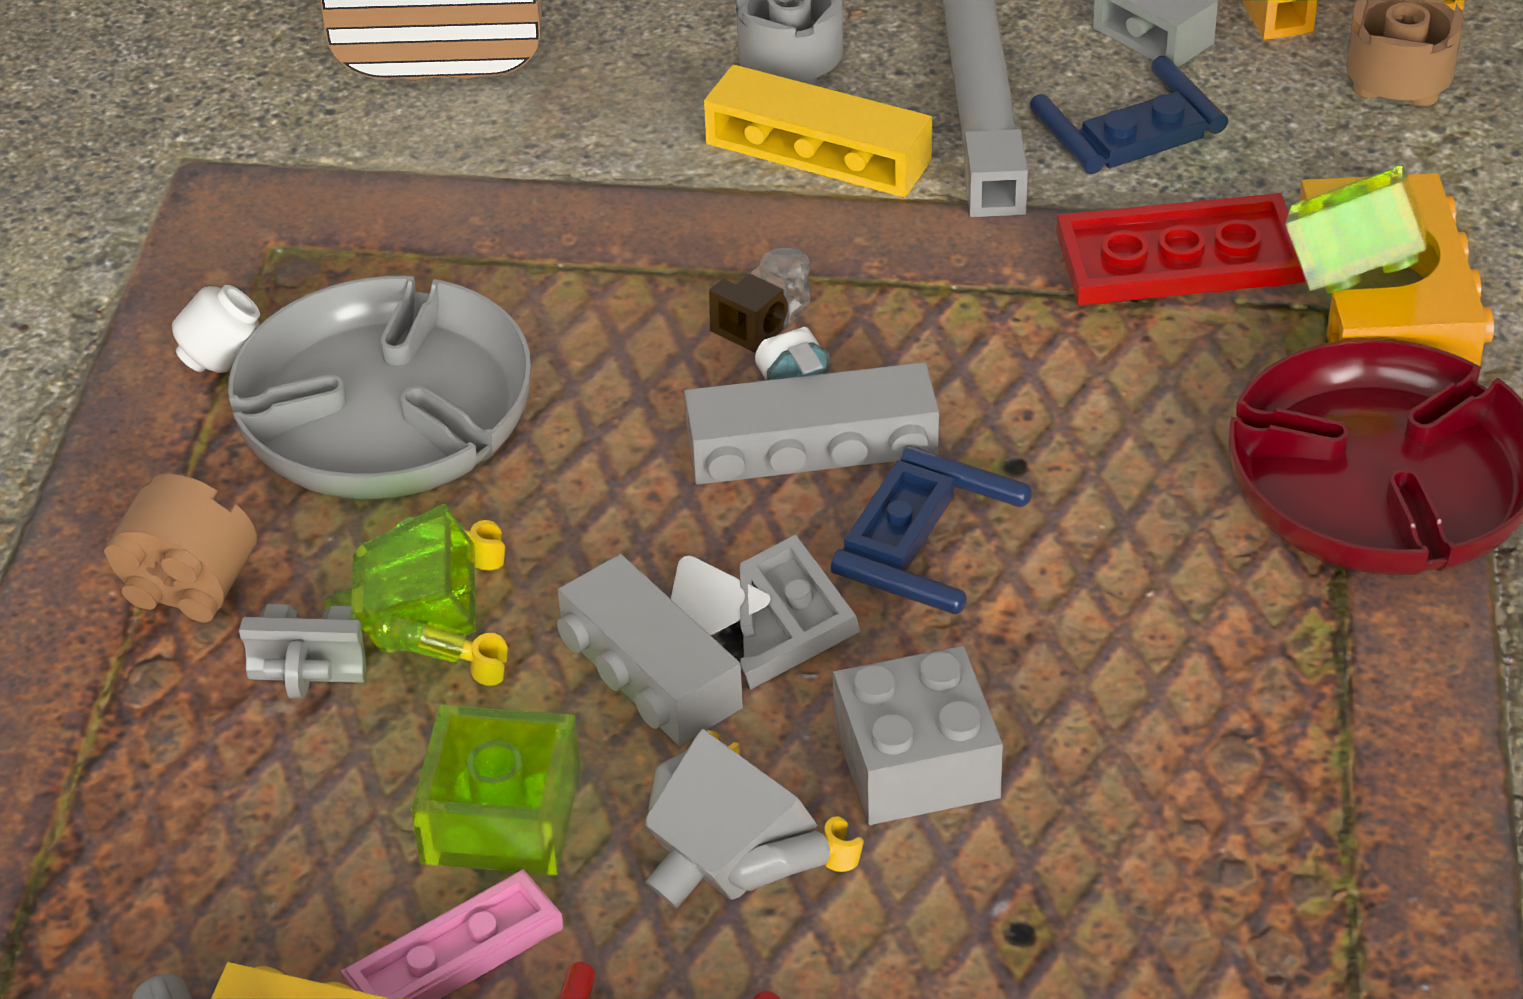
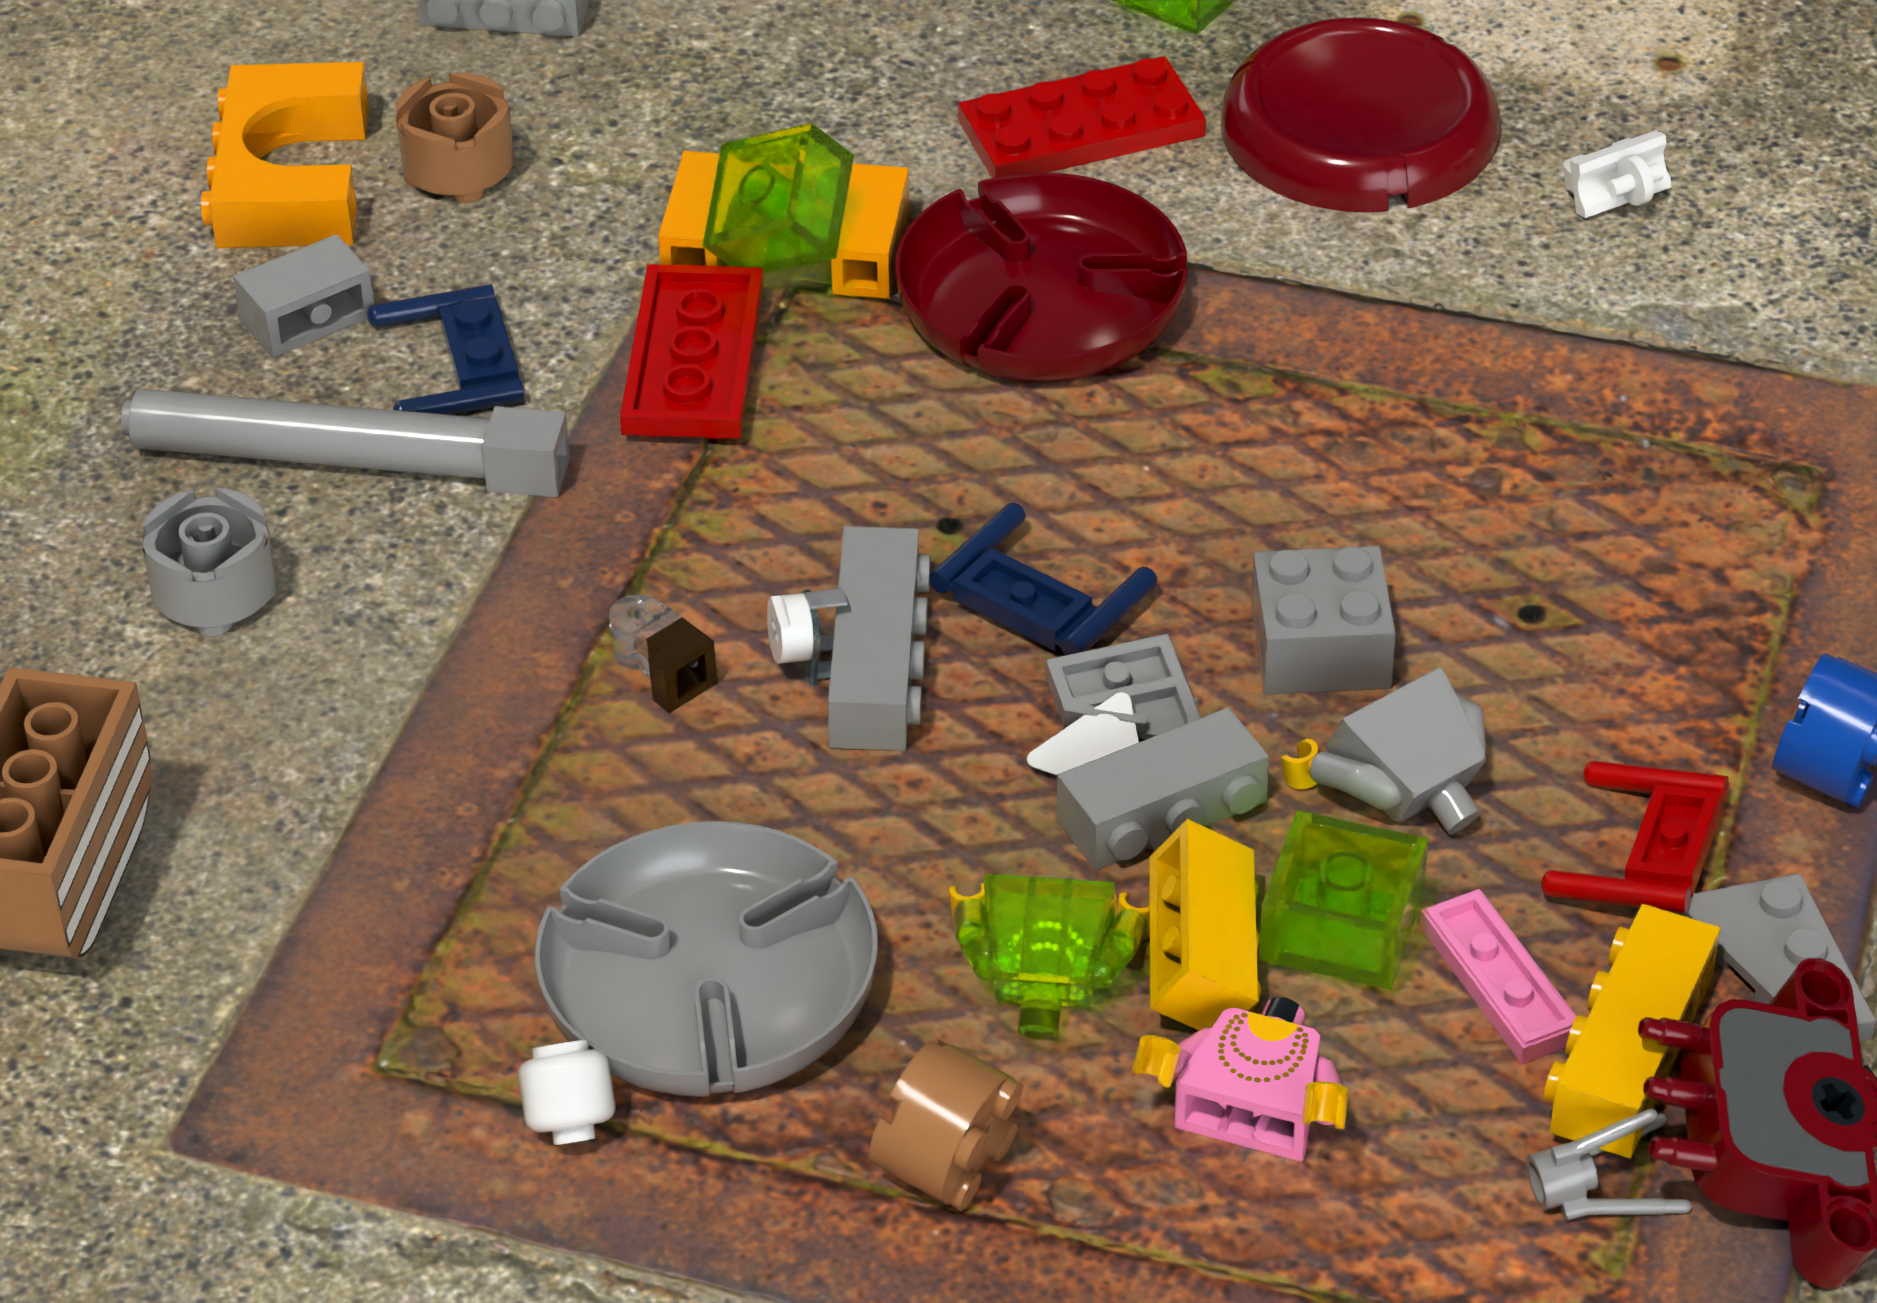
camera: 80 degrees left, 0 degrees up
(267, 756) = (1250, 1079): none -> bright pink torso
(303, 649) = (1104, 1049): light grey hips -> none
(398, 694) = (1202, 926): none -> yellow brick
(818, 130) = (391, 572): yellow brick -> none

